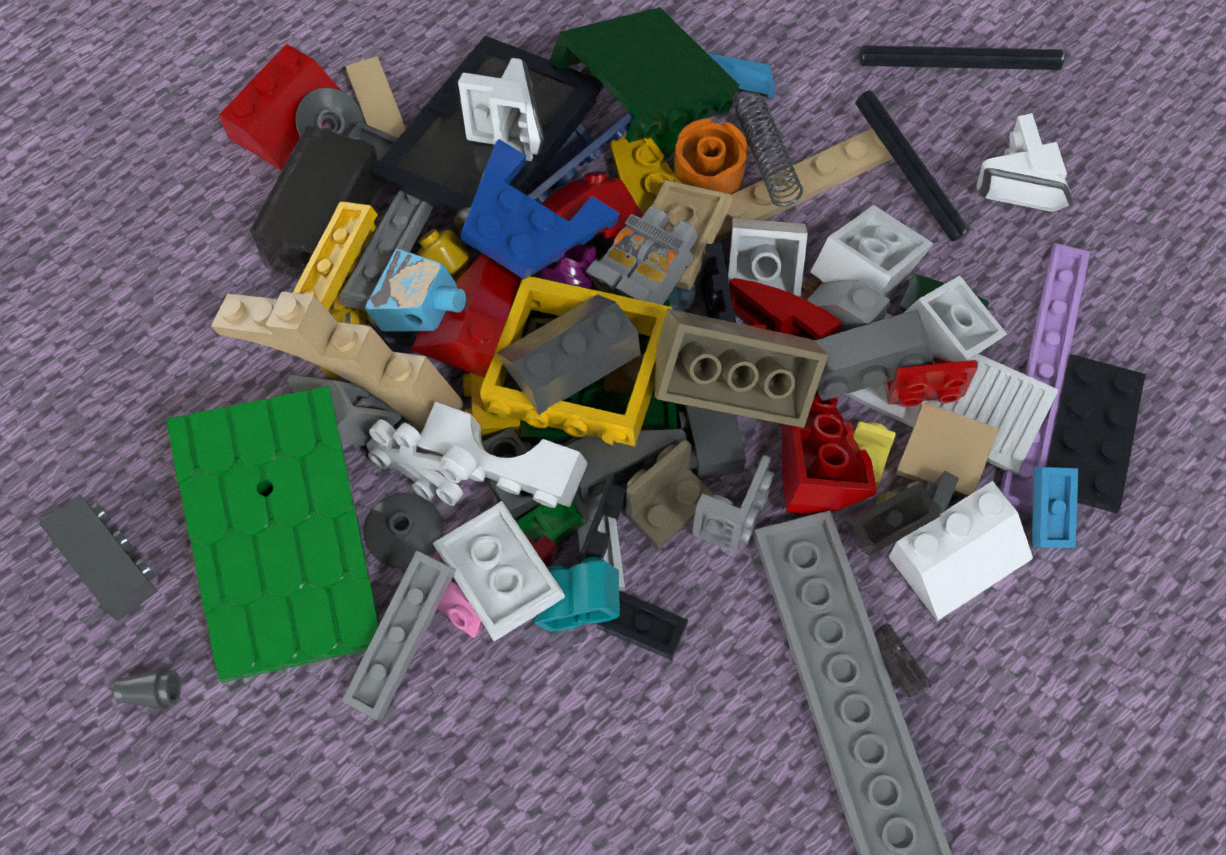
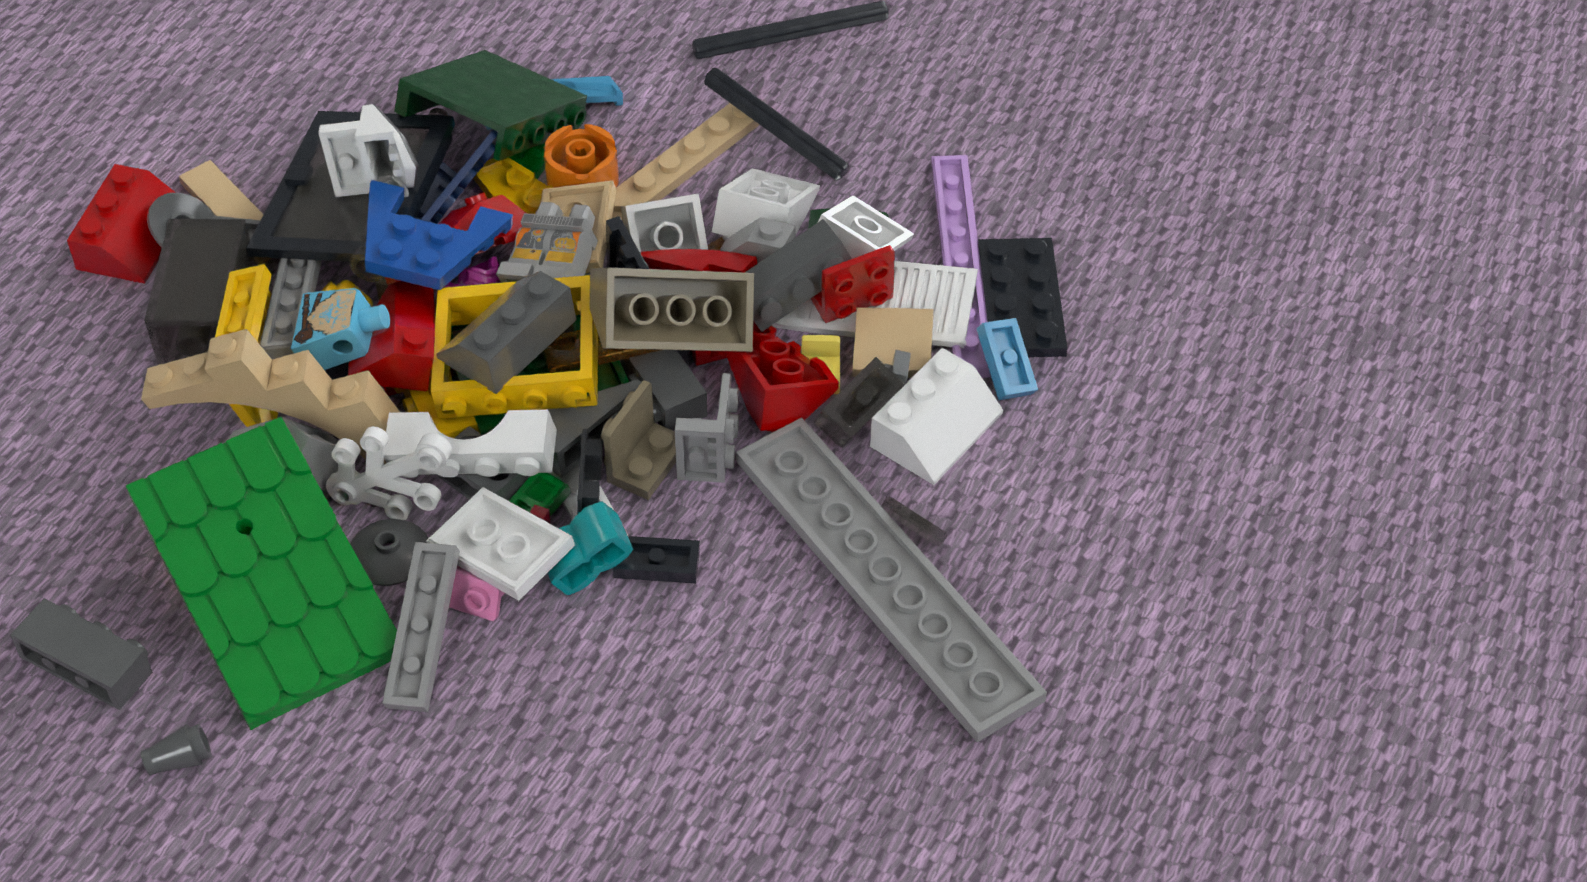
camera: 20 degrees left, 15 degrees down
(753, 149) = (650, 172): dark grey piece -> none
(1028, 172) = (885, 102): white piece -> none

